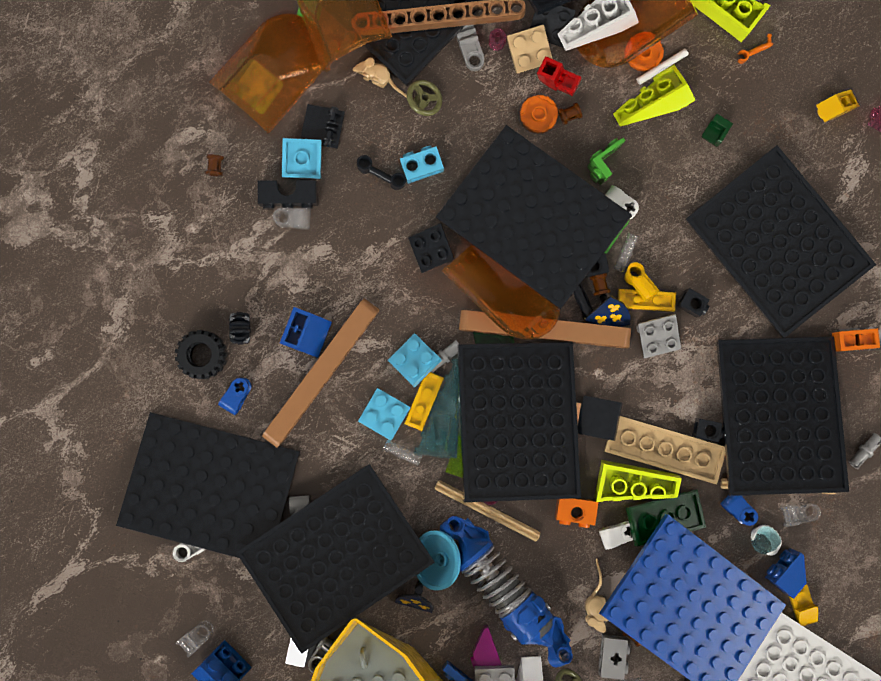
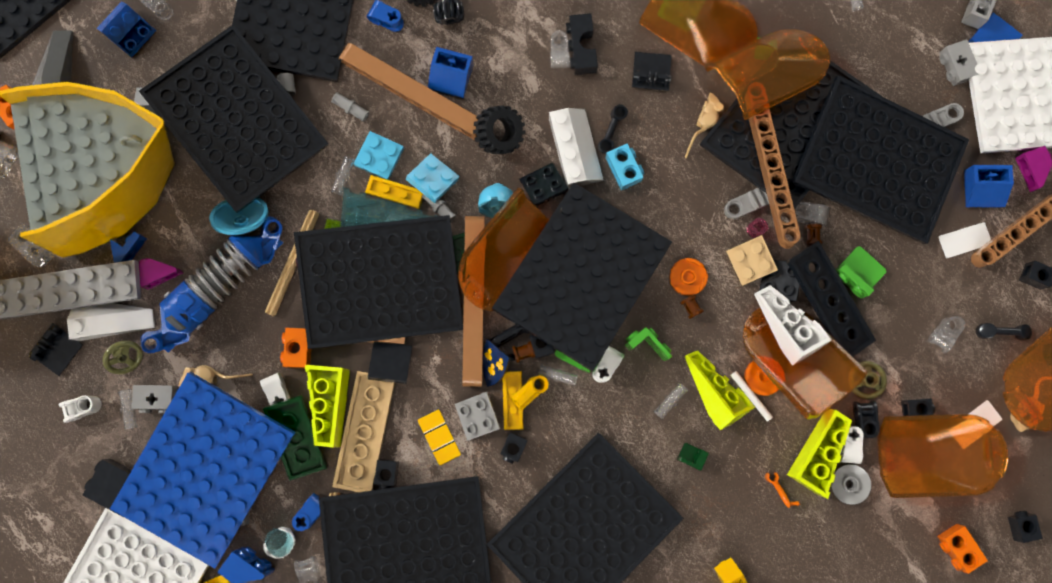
camera: 90 degrees right, 5 degrees down
(301, 158) = (617, 53): medium azure plate -> none
(329, 439) = (350, 106): none -> light grey pin
(379, 275) = (512, 126): none -> black tyre
(396, 212) = (575, 147): none -> white slope
(416, 600) = (207, 201): shield -> none
(422, 98) = (683, 159): olive piece -> none
(444, 297) = (493, 198): none -> medium azure cylinder
(556, 77) = (726, 289): red brick -> none
(661, 145) = (670, 400): none -> clear pin
(675, 376) = (439, 437): none -> yellow sticker

